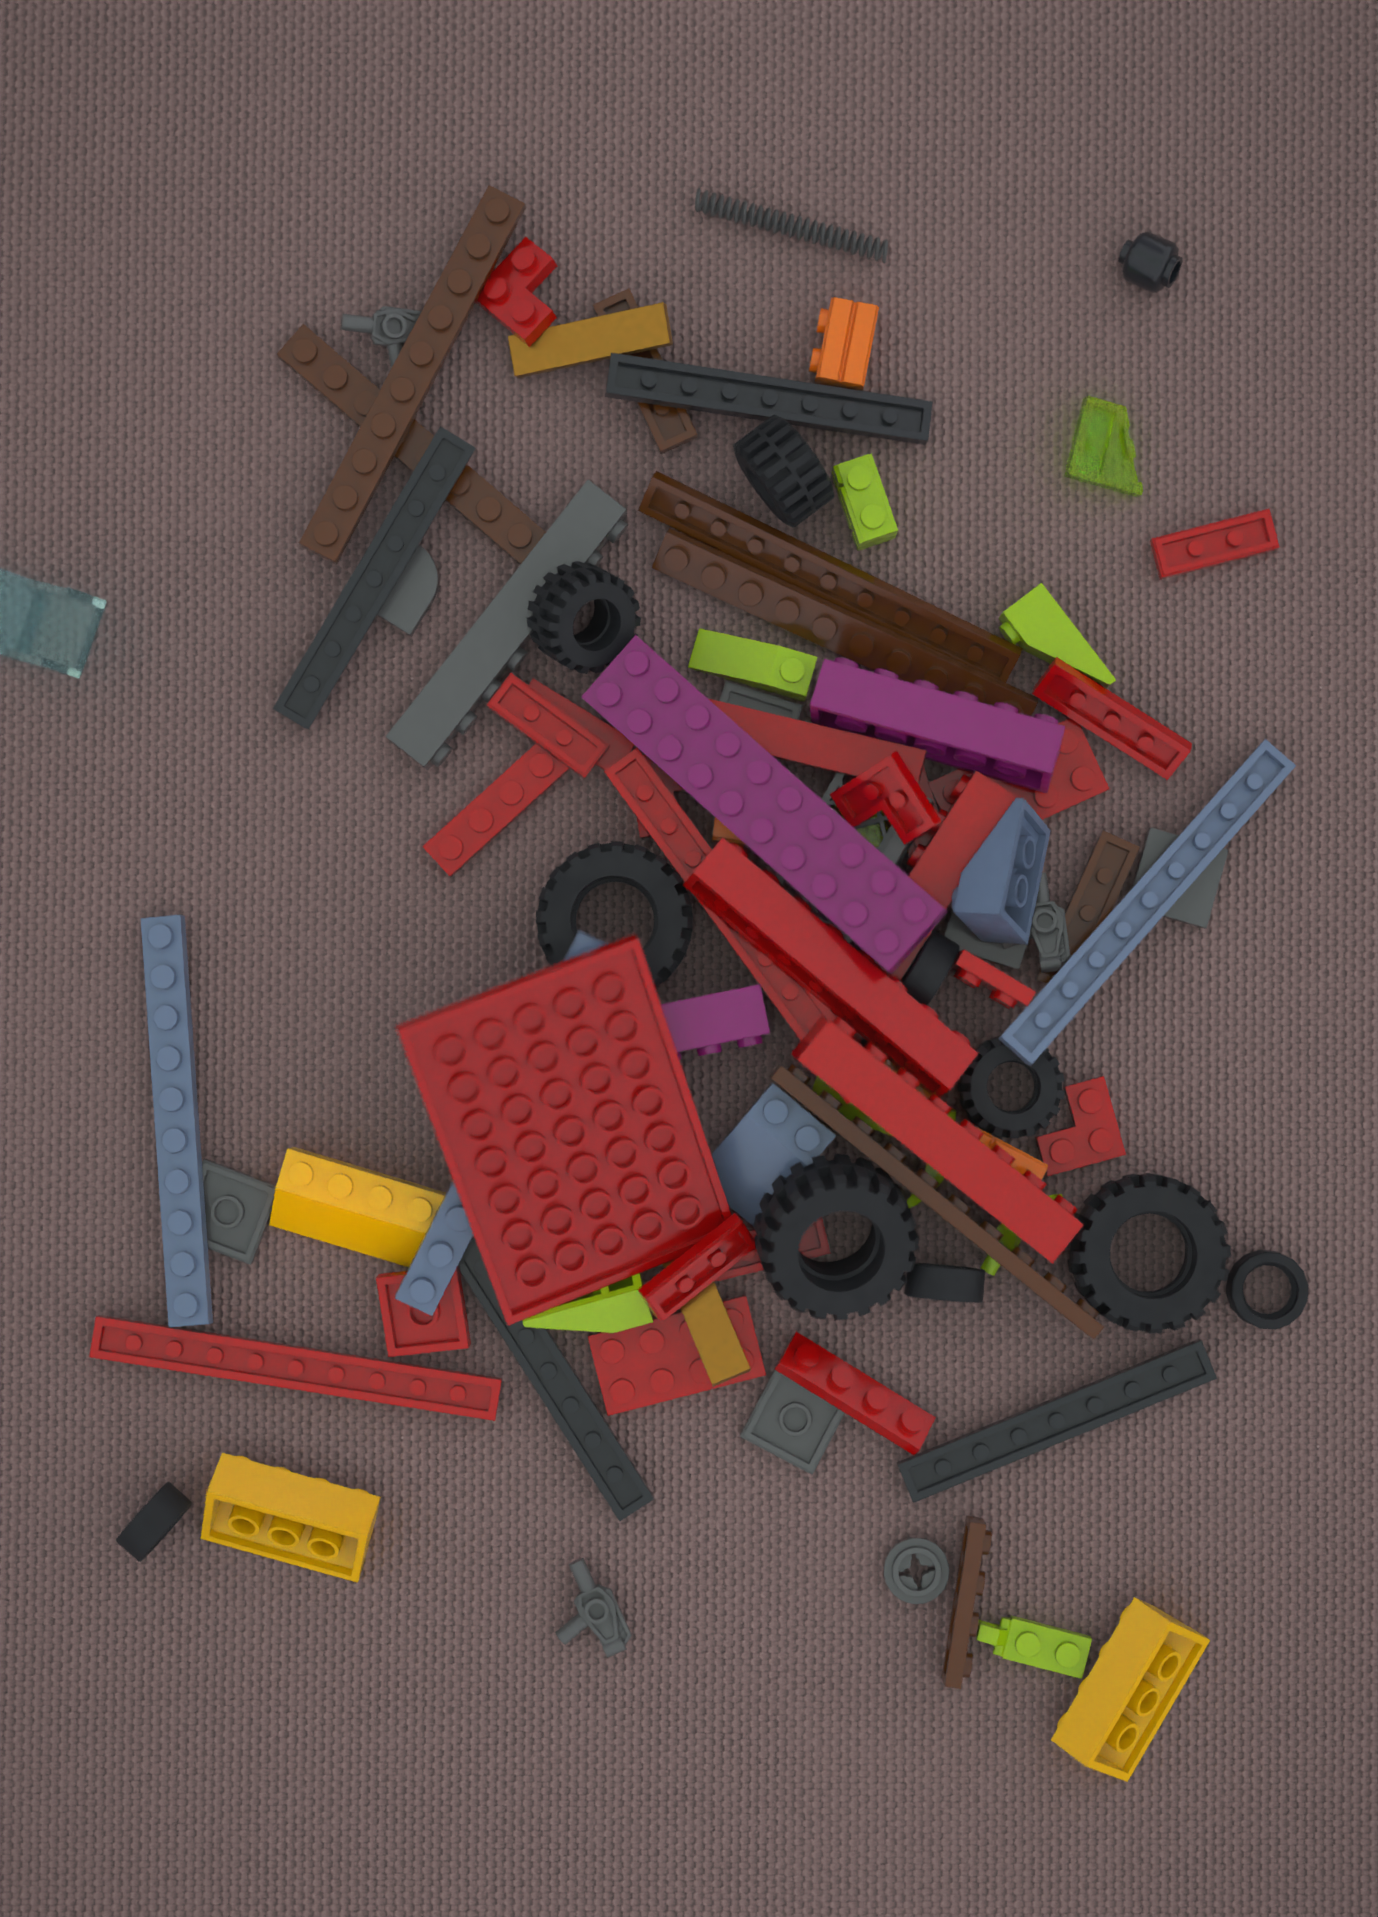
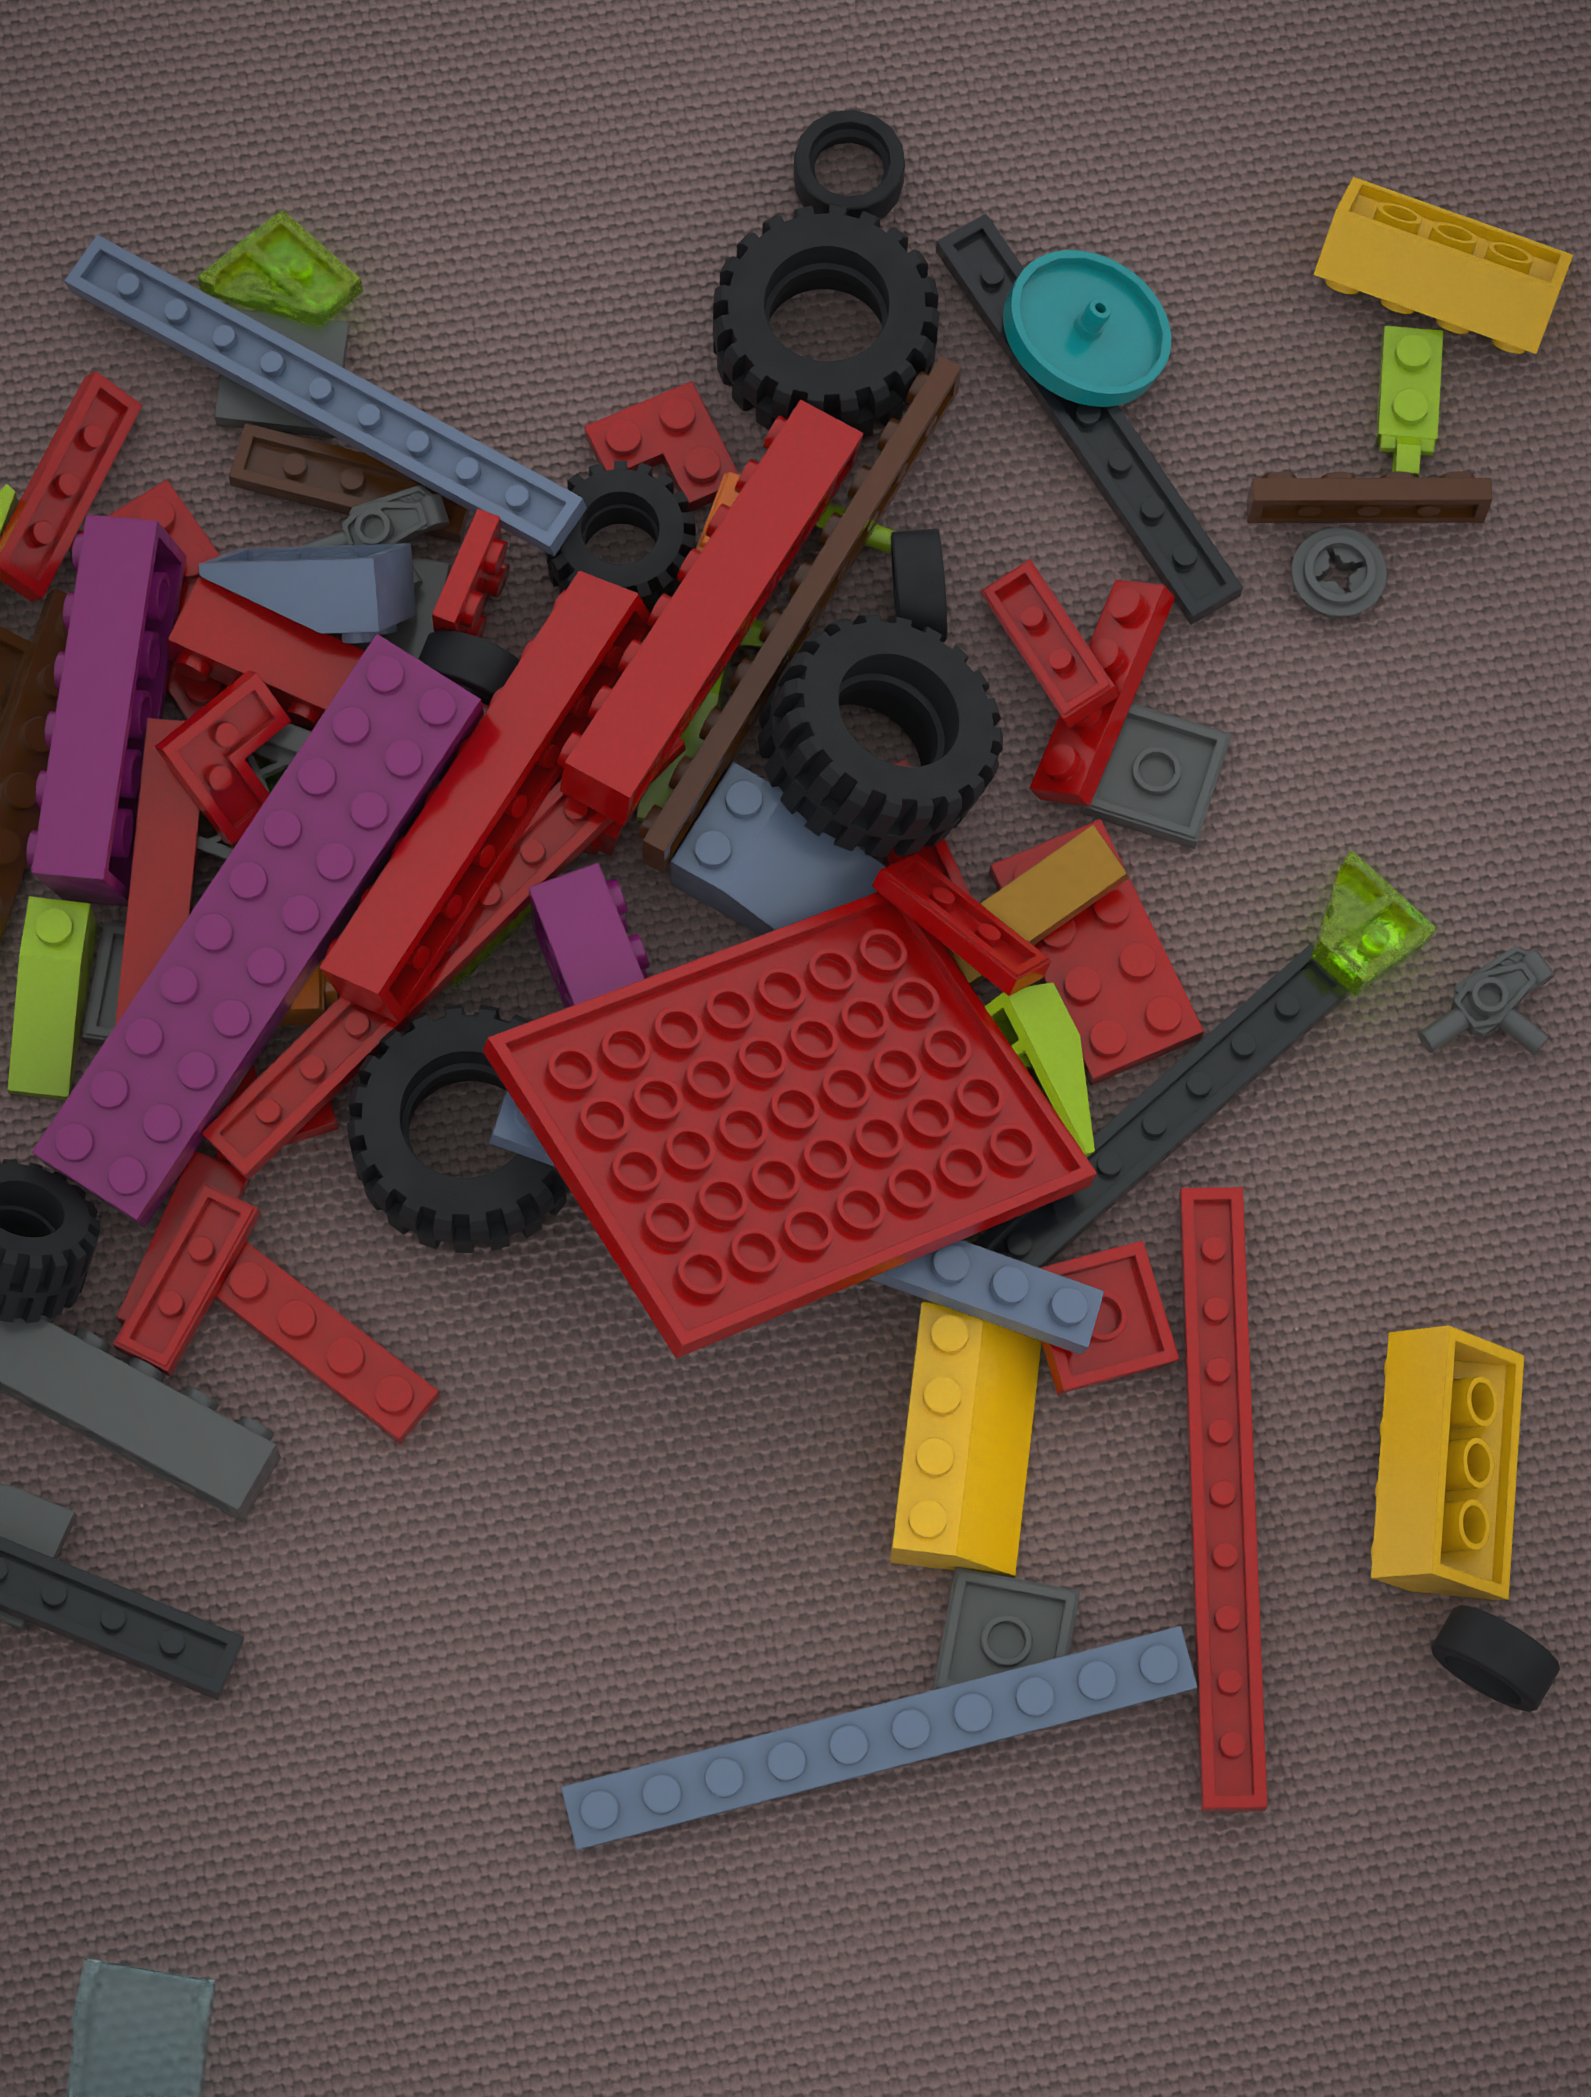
camera: 100 degrees left, 15 degrees down
(659, 1537) = (1366, 927): none -> clear neon green wing
(892, 1363) = (1049, 643): none -> red tile
(1118, 1432) = (1087, 328): none -> teal piece
(1247, 888) = (283, 274): none -> clear neon green wing

